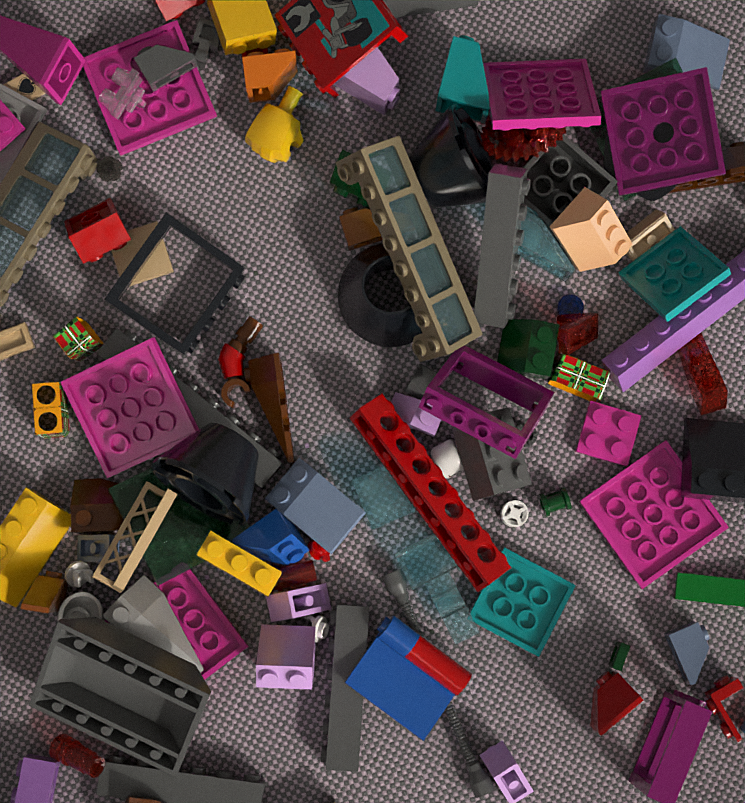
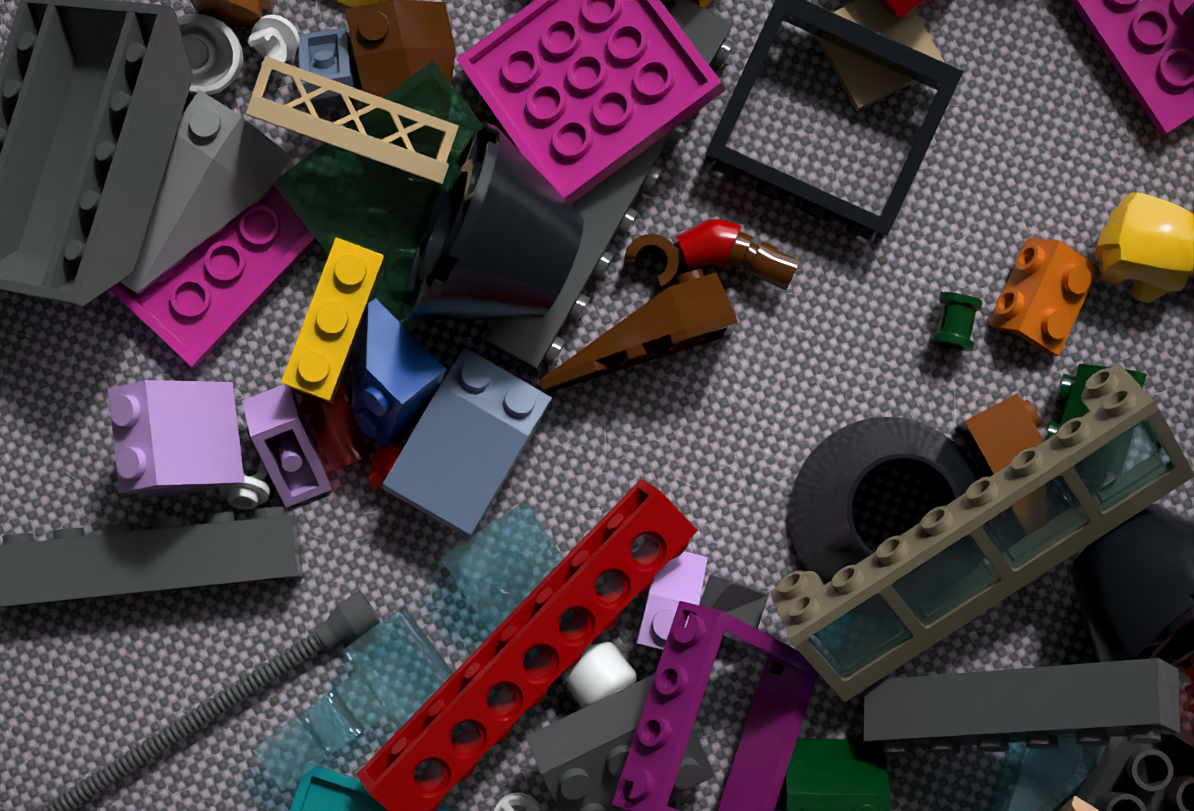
camera: 80 degrees right, 0 degrees up
(289, 193) = (1044, 294): none -> orange bracket
(295, 241) = (956, 321): none -> dark green bush
(407, 677) = (178, 669): blue door -> none

